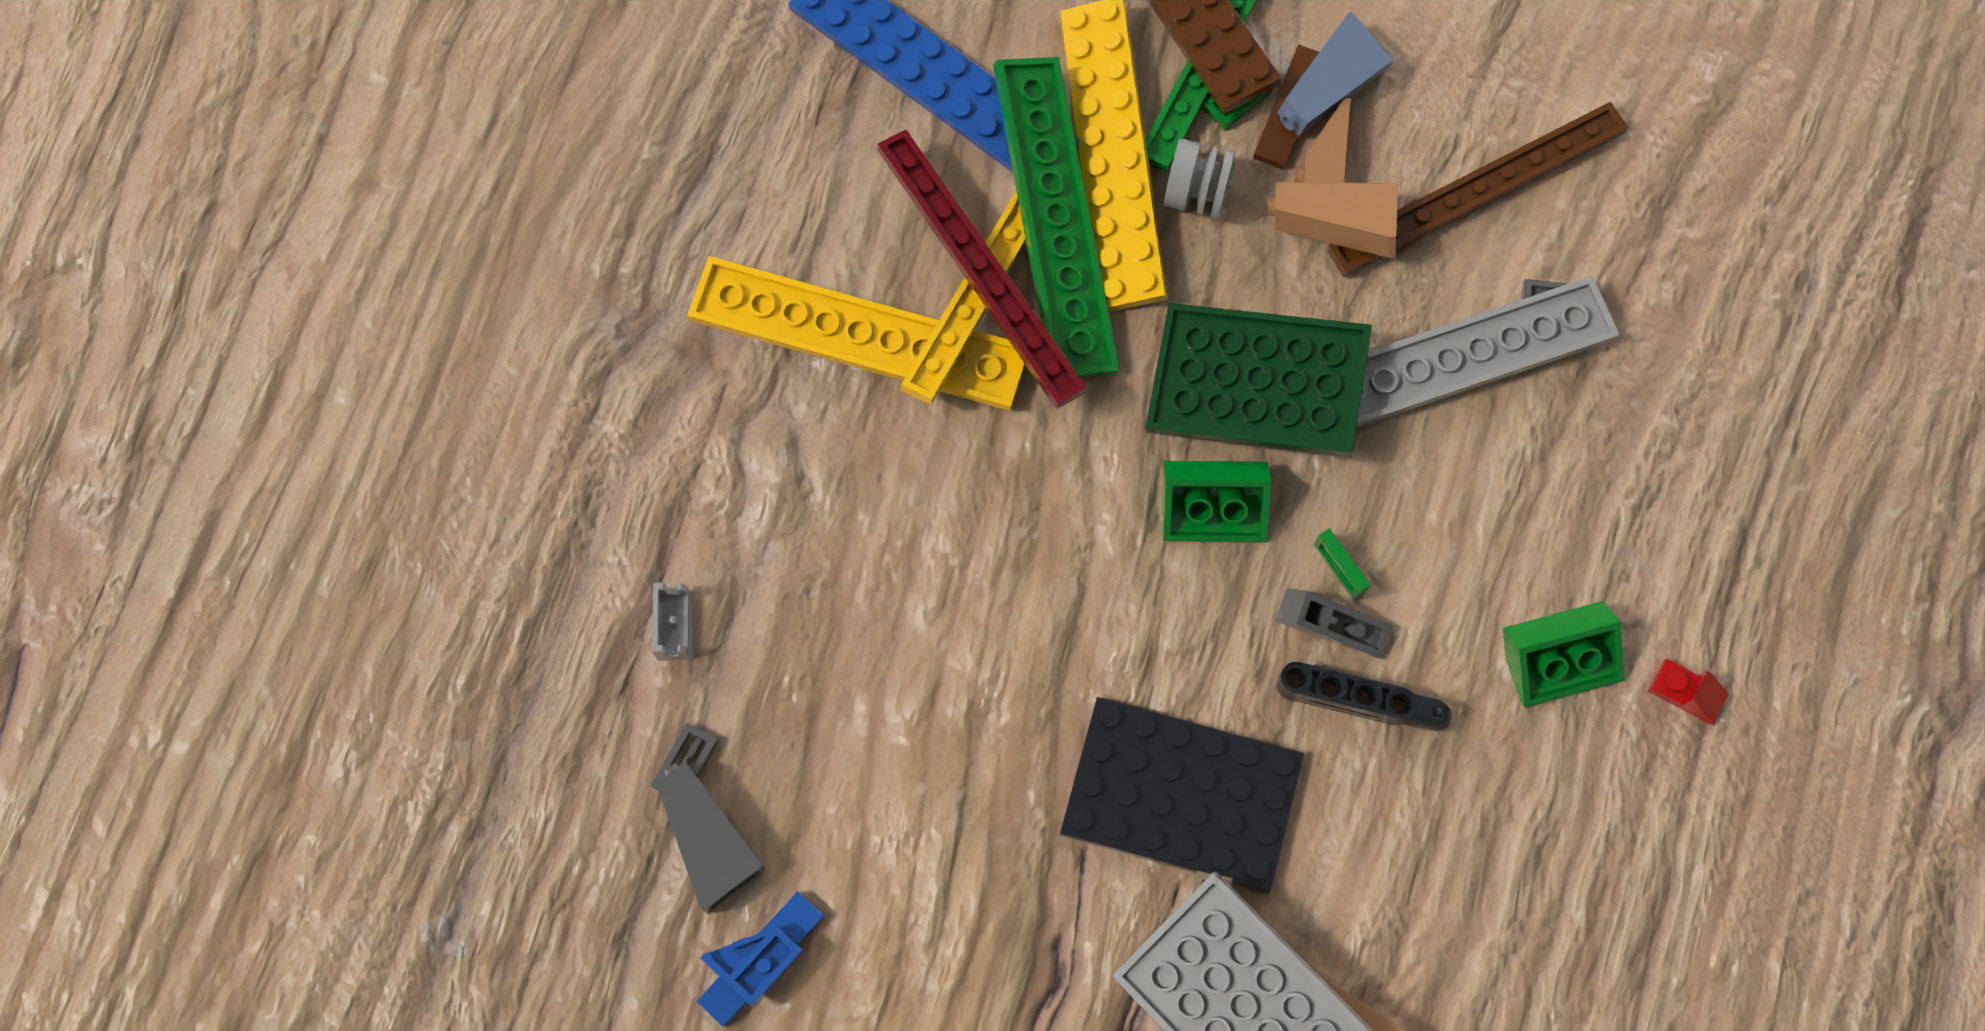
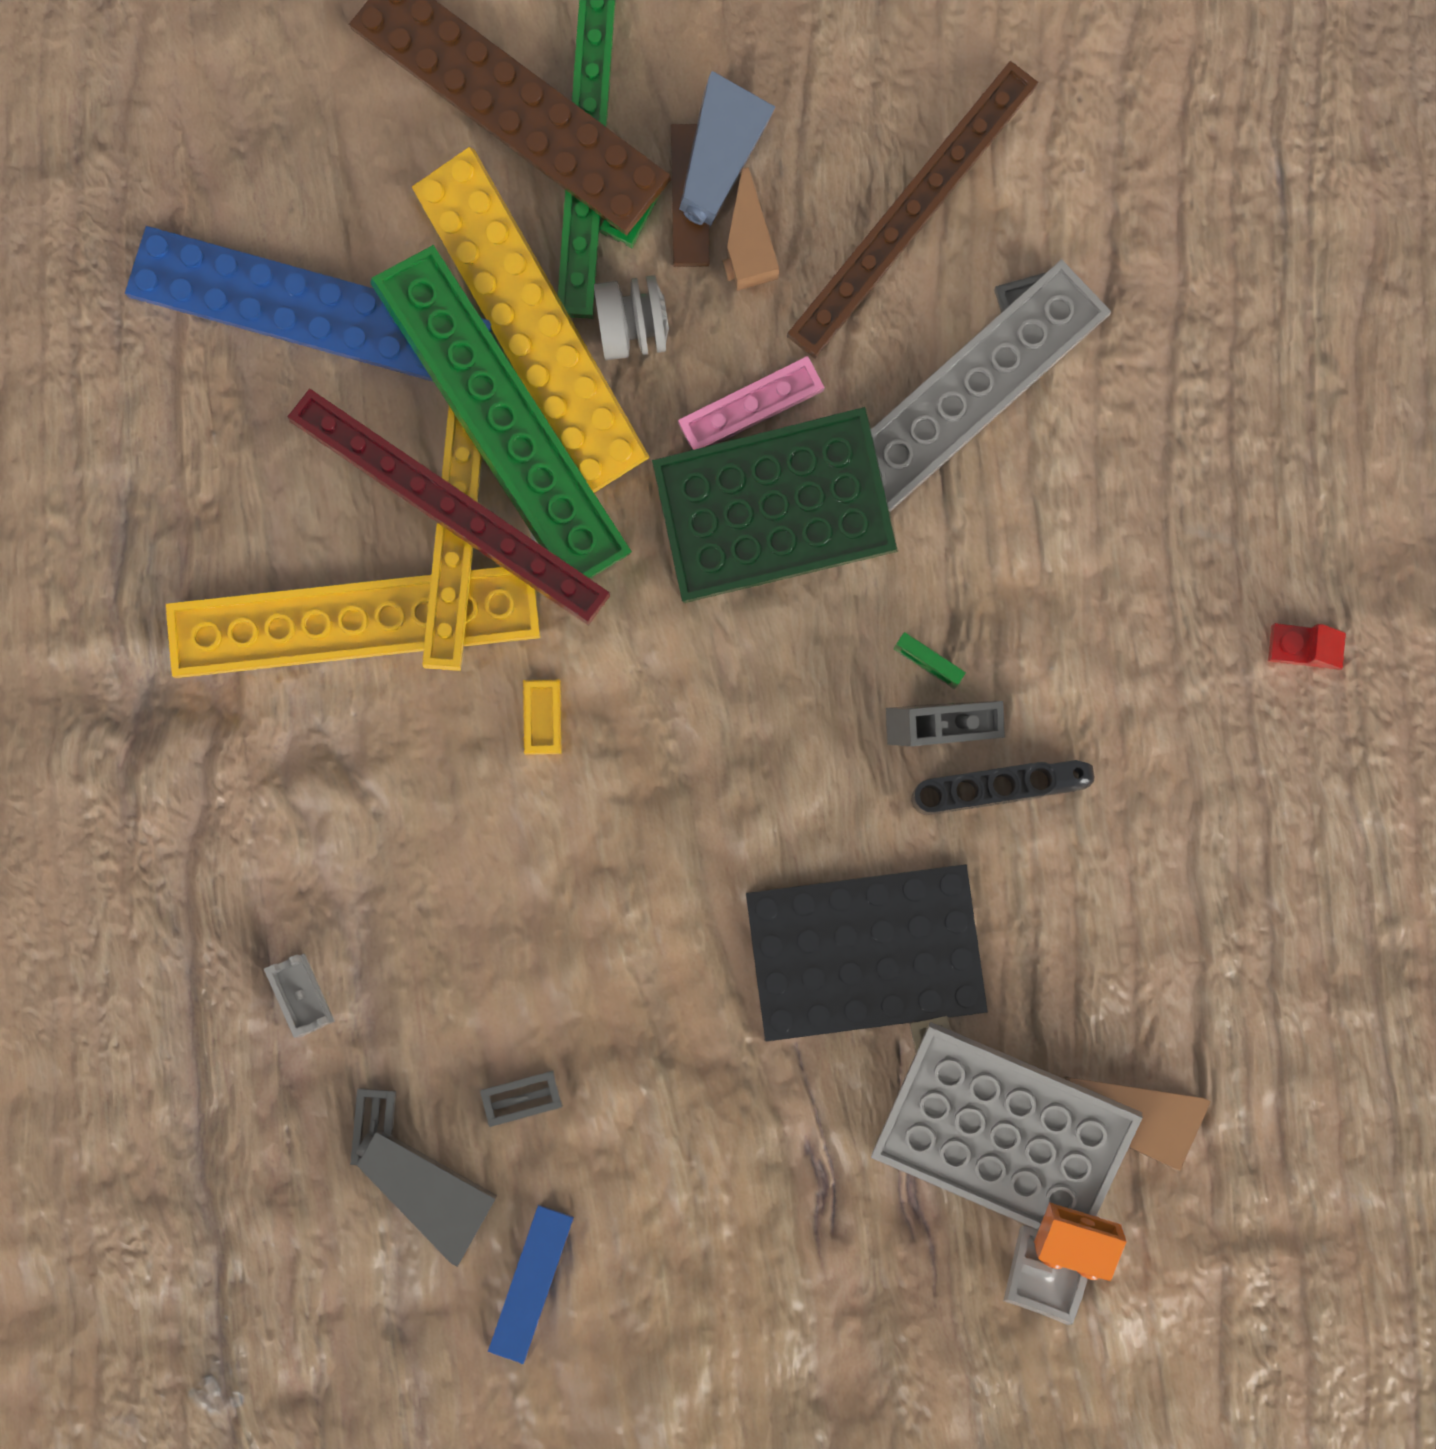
camera: 25 degrees left, 10 degrees up
(754, 962) = (527, 1293): blue wing -> none
(854, 797) = (551, 1090): none -> dark grey tile
(983, 477) = (542, 717): none -> yellow tile
(1215, 501) = (781, 647): green slope -> none
(1274, 291) = (751, 404): none -> bright pink plate
(1339, 213) = (786, 296): medium nougat slope -> none
(1564, 653) = (1176, 659): green slope -> none

